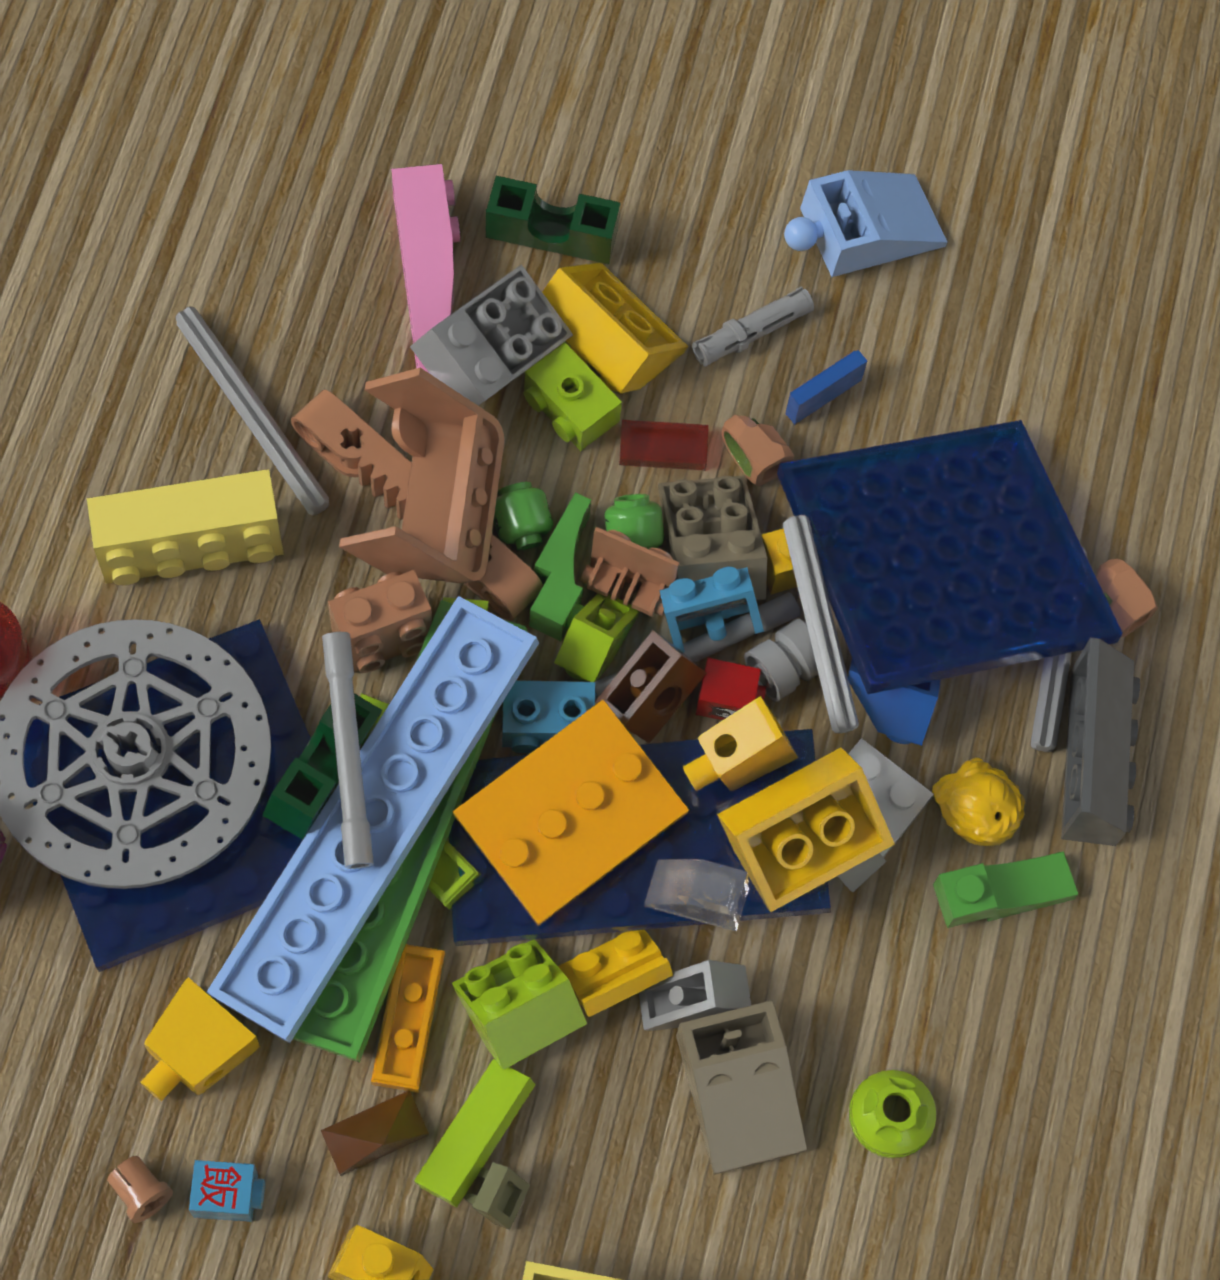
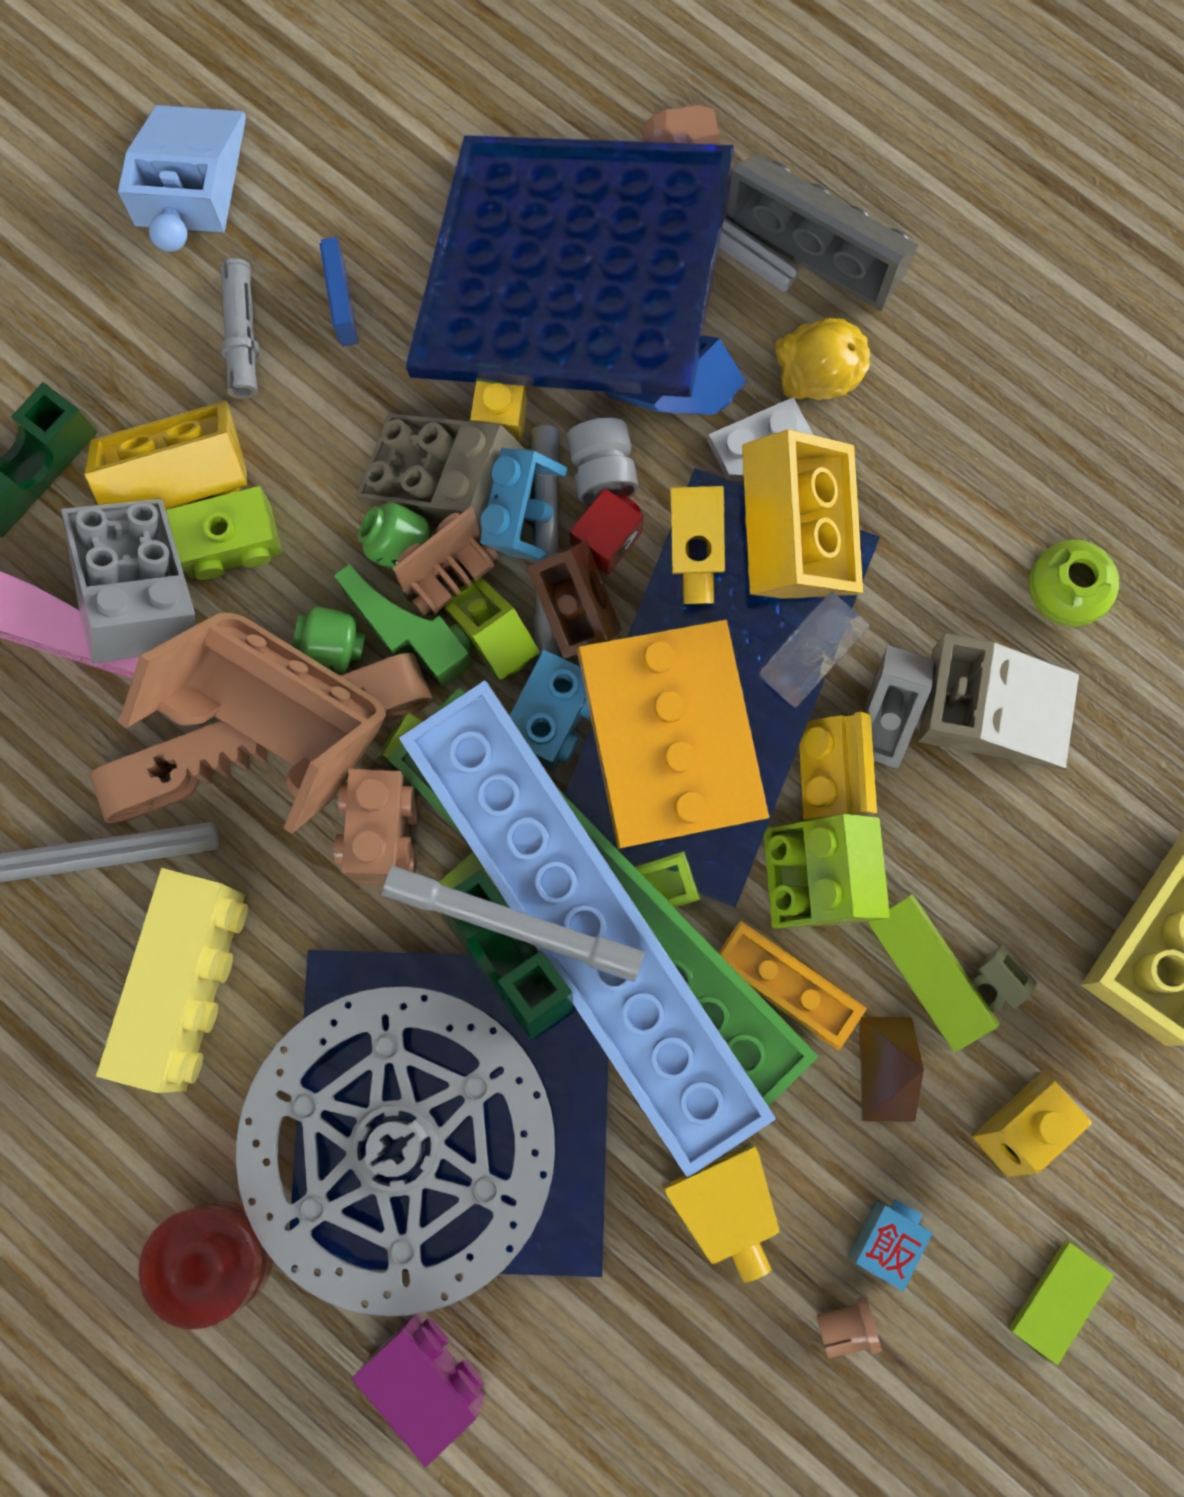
camera: 55 degrees left, 10 degrees up
(663, 445) = (318, 472): clear red tile -> none
(755, 448) = (368, 387): nougat rock -> none
(820, 624) = (592, 407): light grey axle -> none
(1004, 889) = (914, 381): bright green slope -> none

